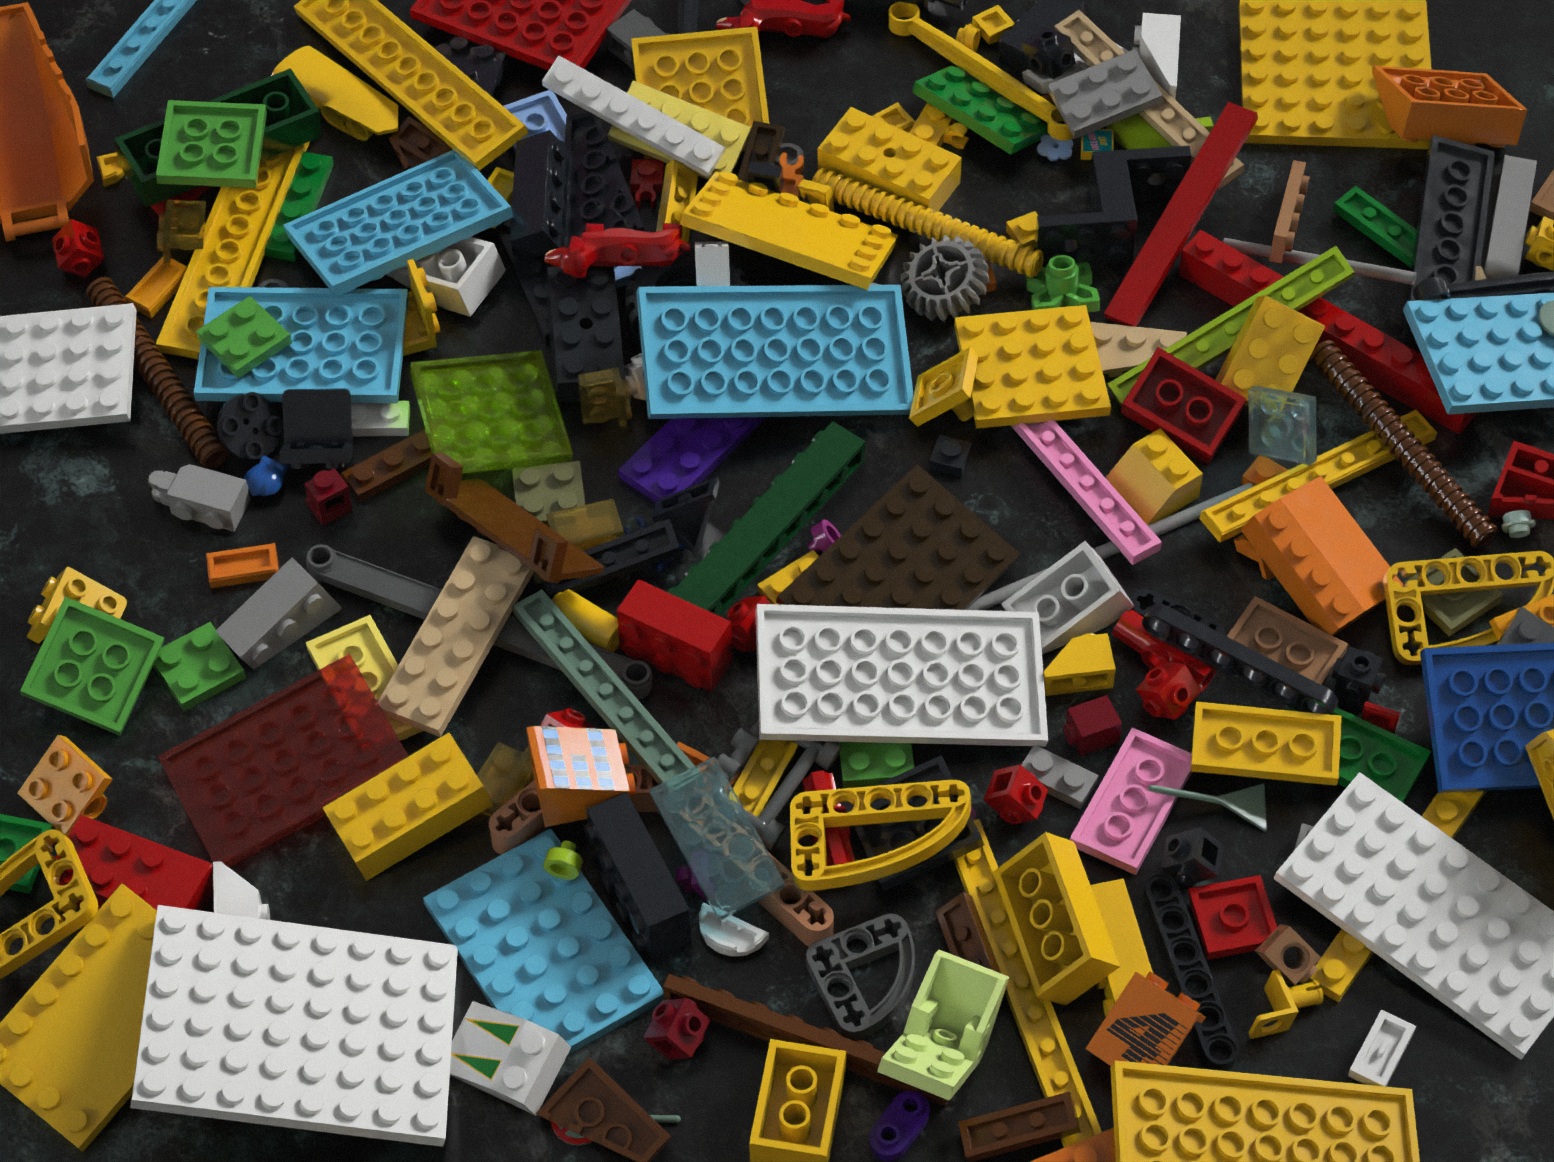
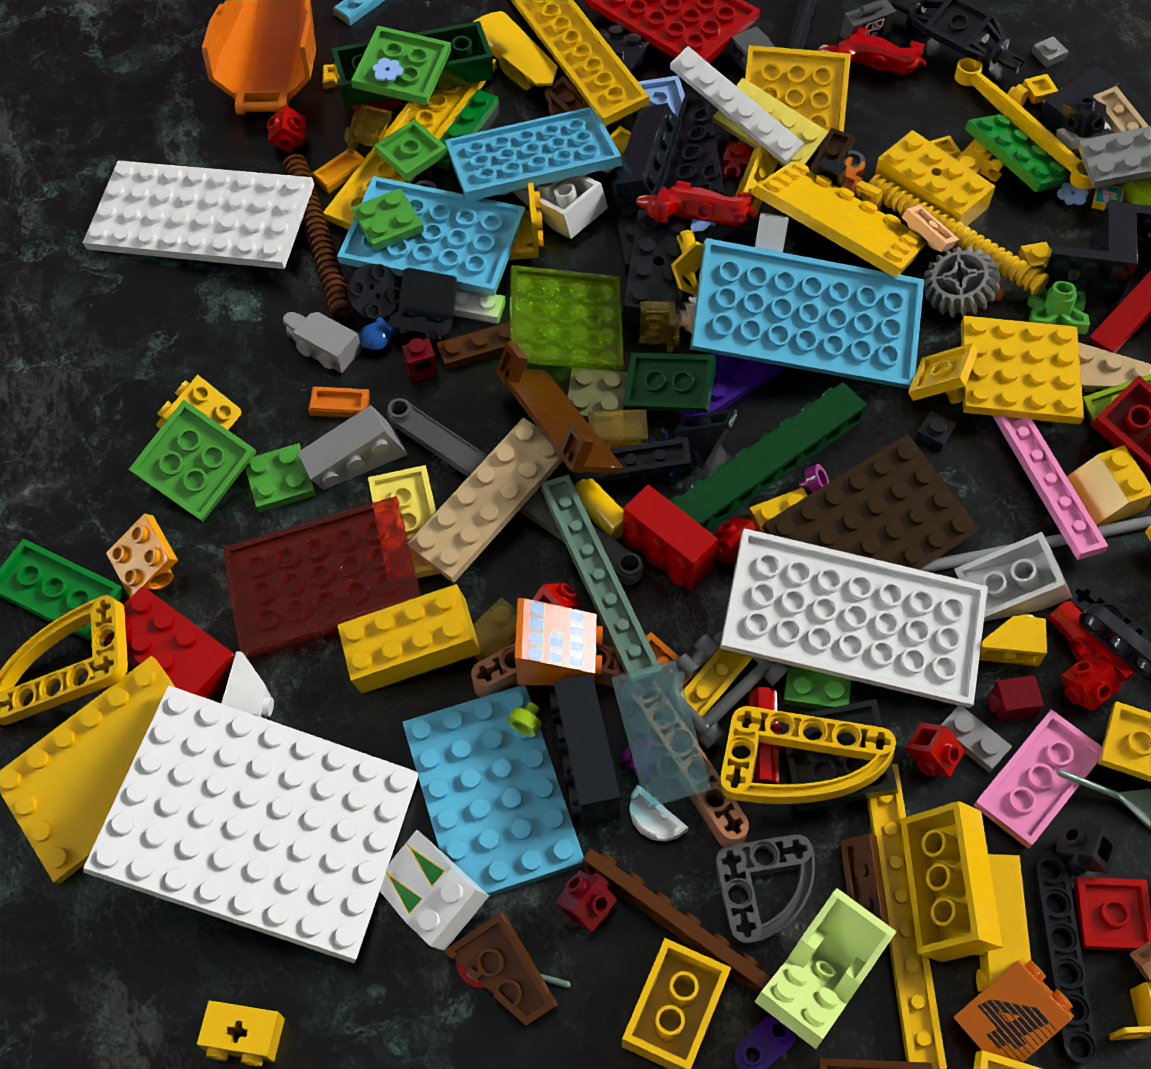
camera: 15 degrees right, 5 degrees up
(199, 154) = (387, 70): none -> light blue plant
(245, 245) = (410, 149): none -> bright green plate
(622, 318) = (688, 261): none -> yellow bracket
(632, 462) = (670, 382): none -> dark green plate
(887, 217) = (935, 233): none -> light nougat plate

